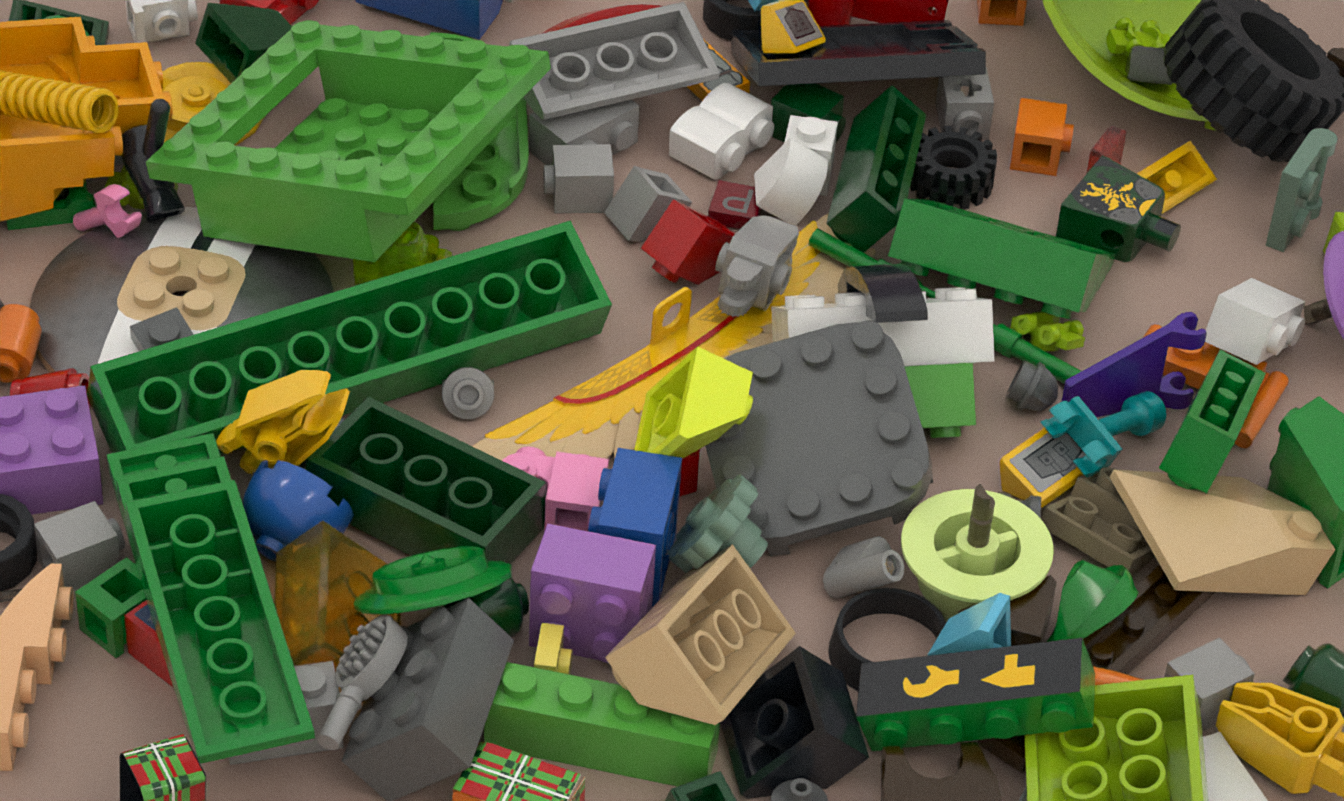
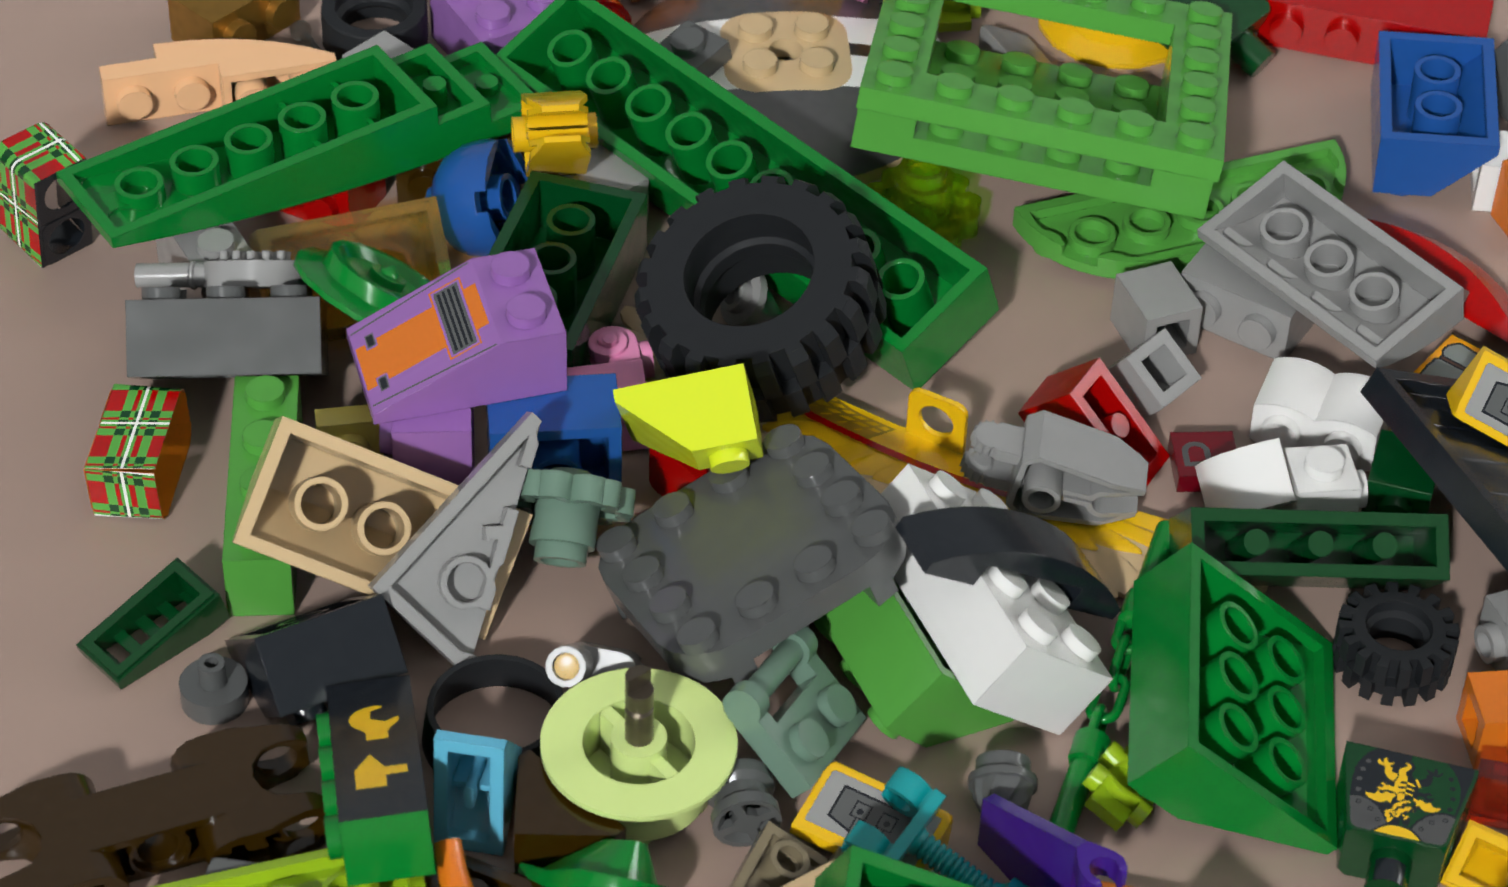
camera: 75 degrees right, 0 degrees up
(559, 296) = (754, 234): none -> black tyre
(573, 515) = (463, 341): none -> medium lavender slope
(756, 581) = (450, 565): none -> light grey wing
(973, 467) = (808, 725): none -> sand green plate

